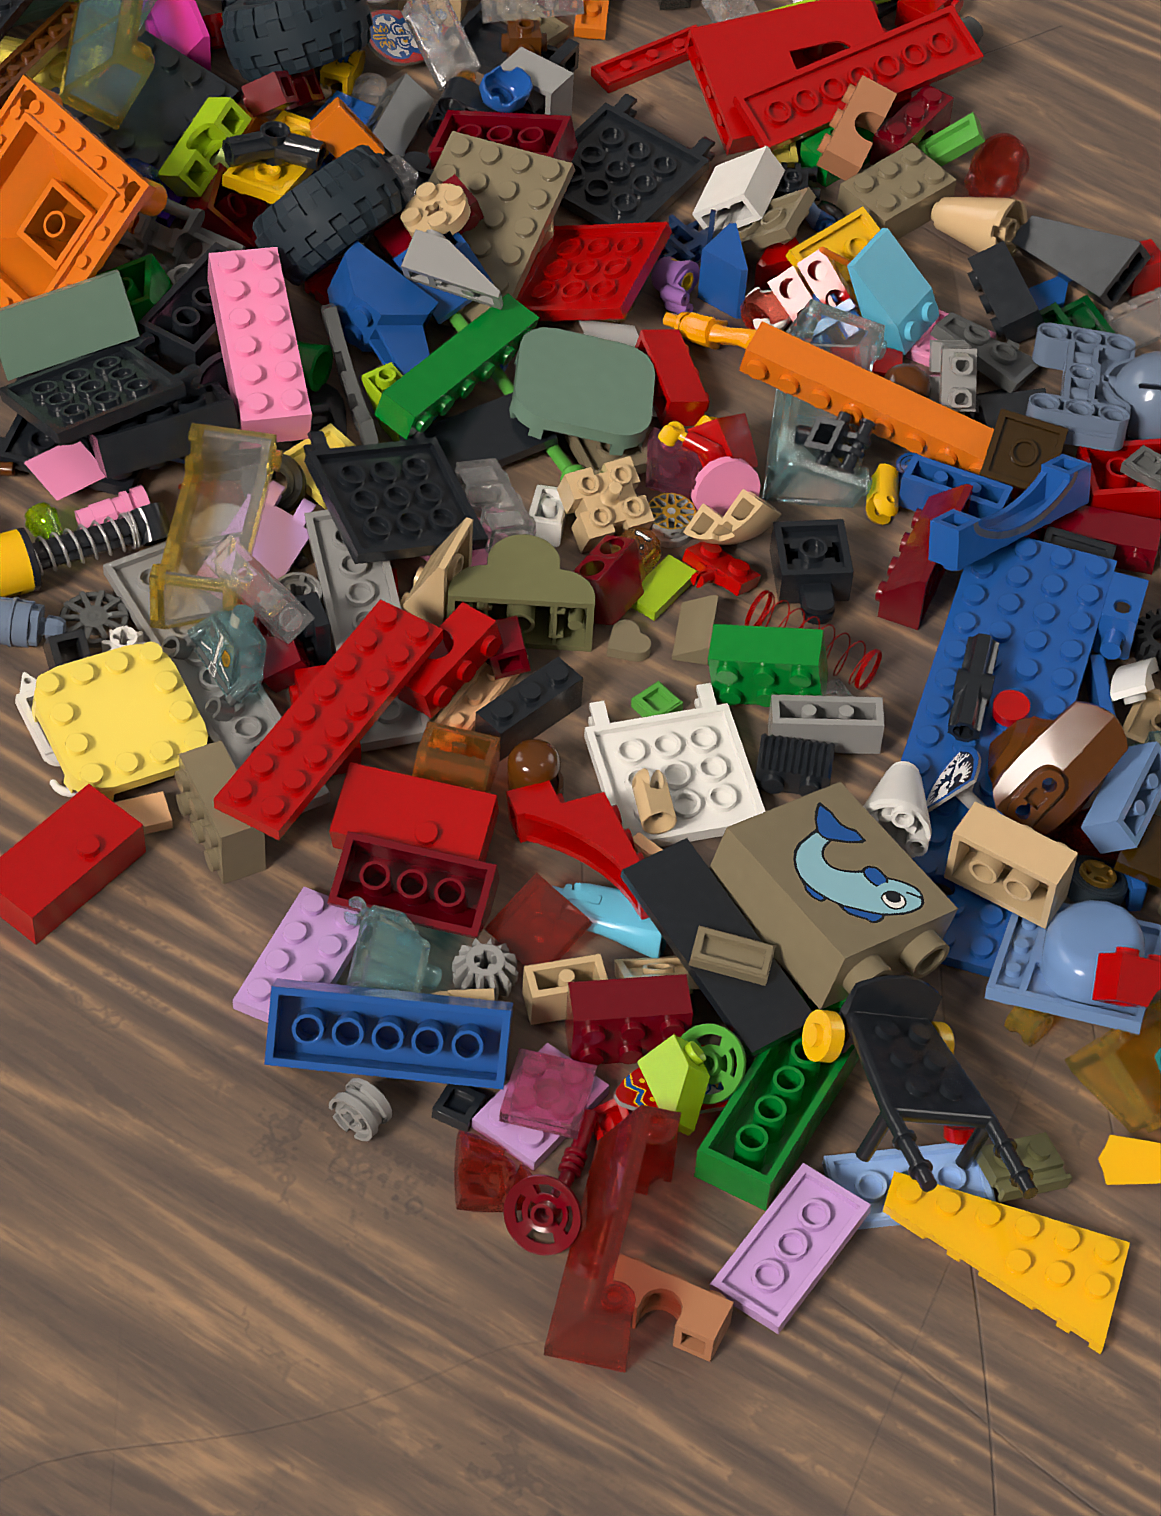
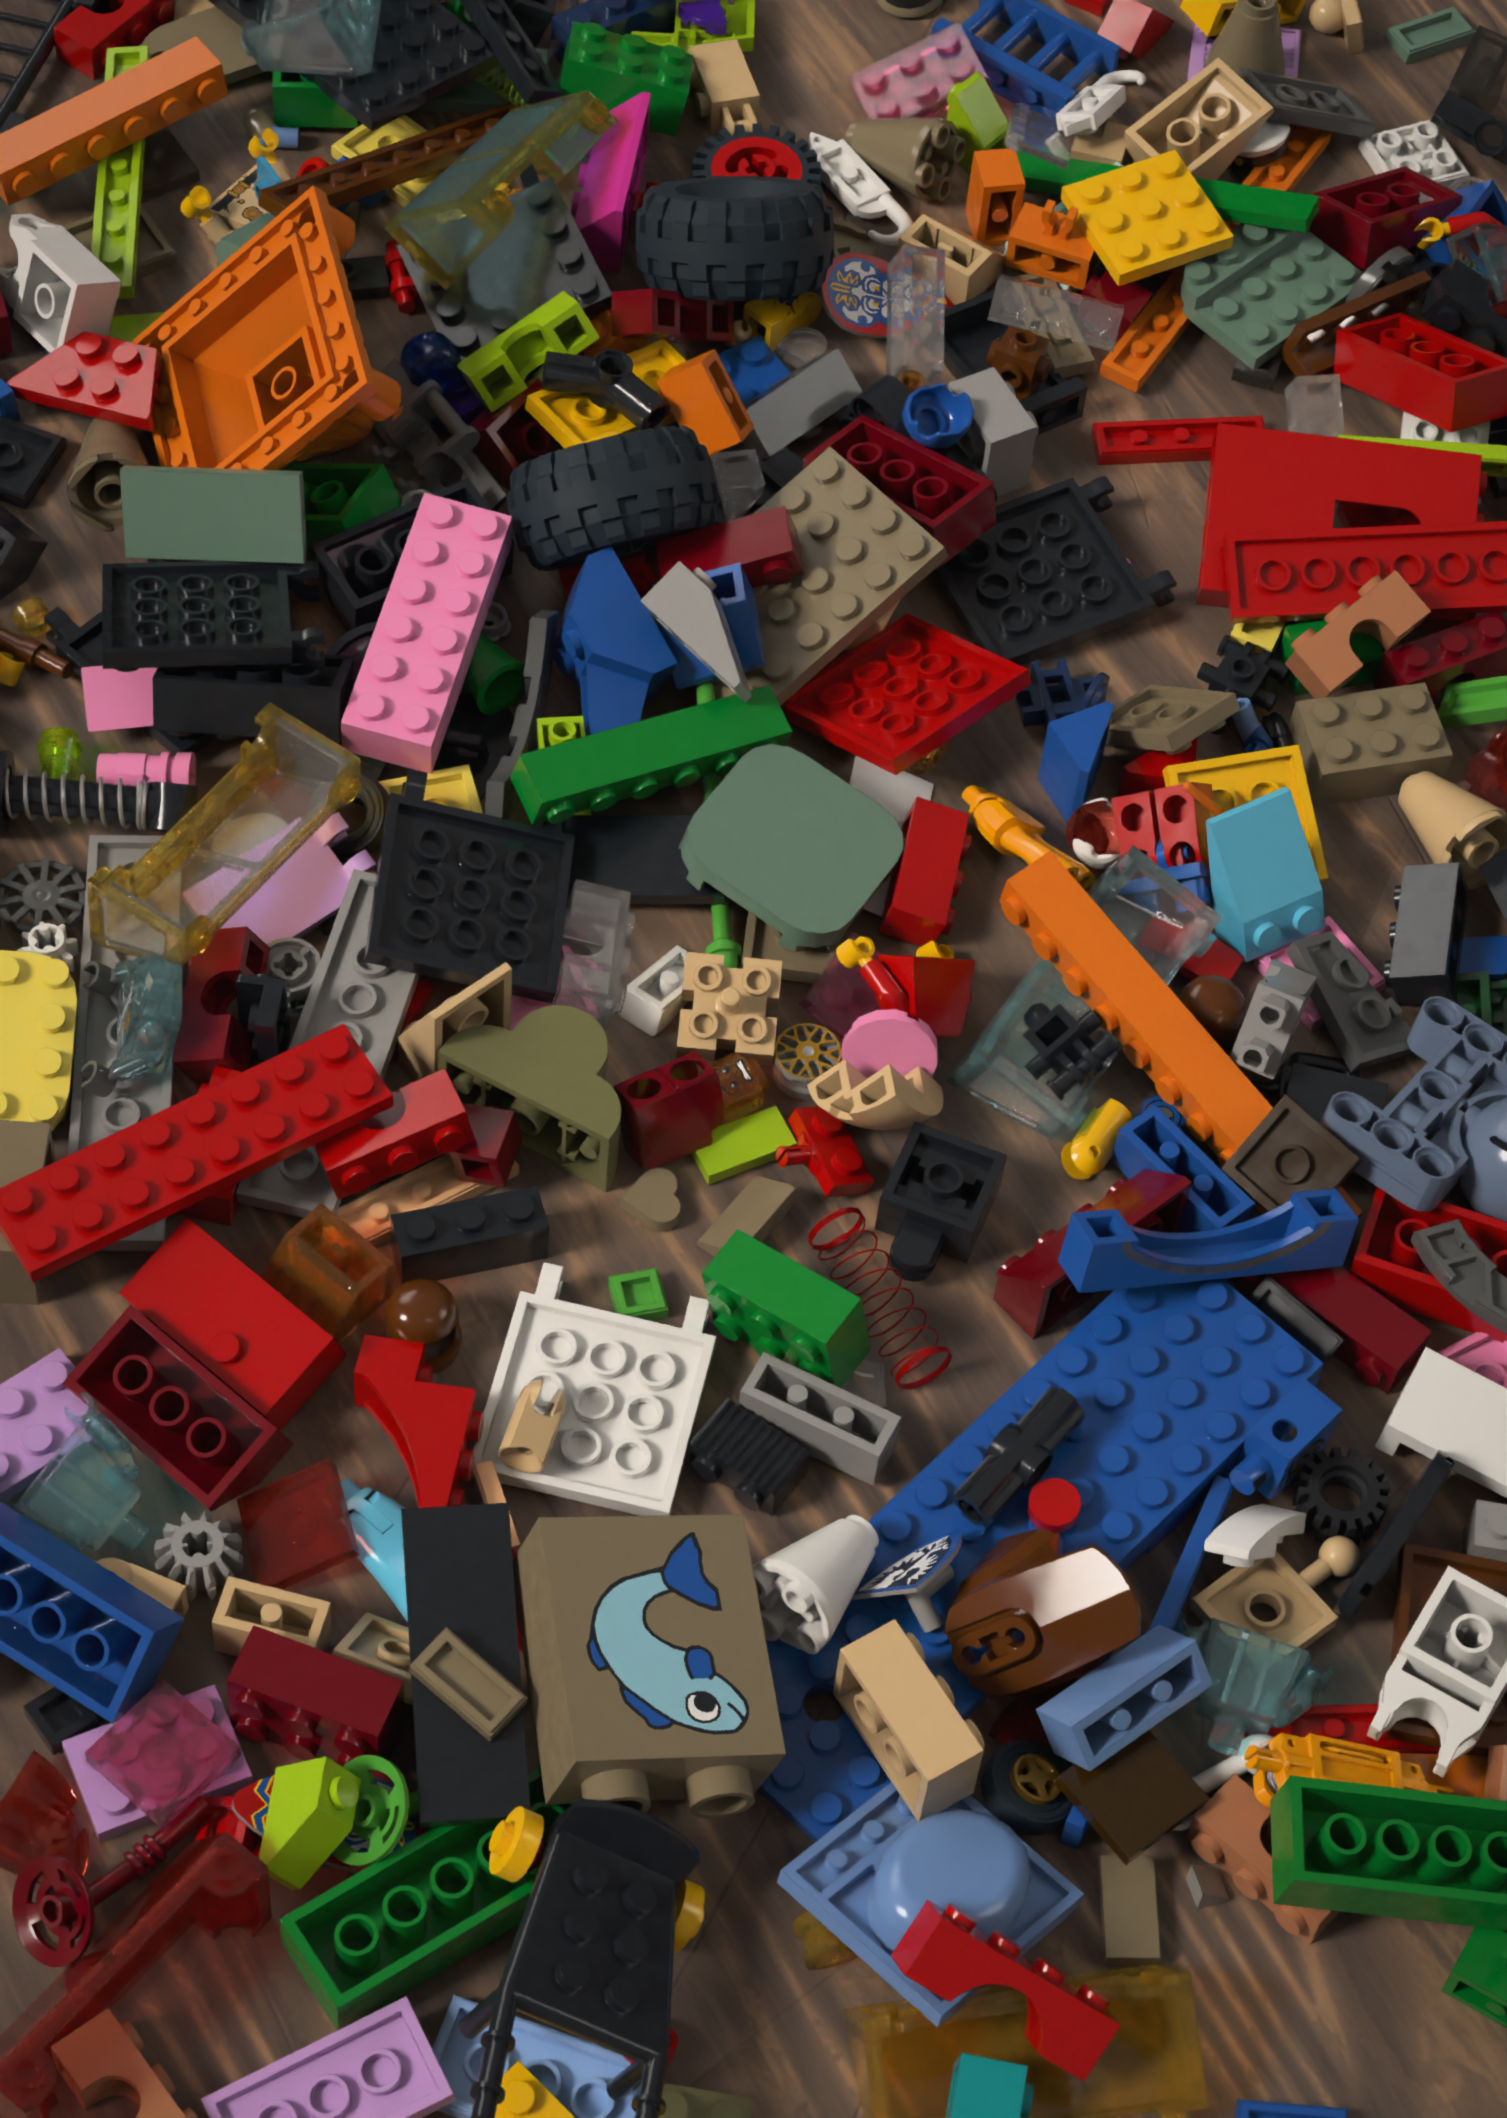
camera: 25 degrees right, 5 degrees up
(258, 589) = (199, 952): clear slope -> none
(425, 208) = (733, 526): tan plate -> none
(675, 282) = (1012, 749): medium lavender piece -> none
(740, 190) = (1163, 660): white brick -> none

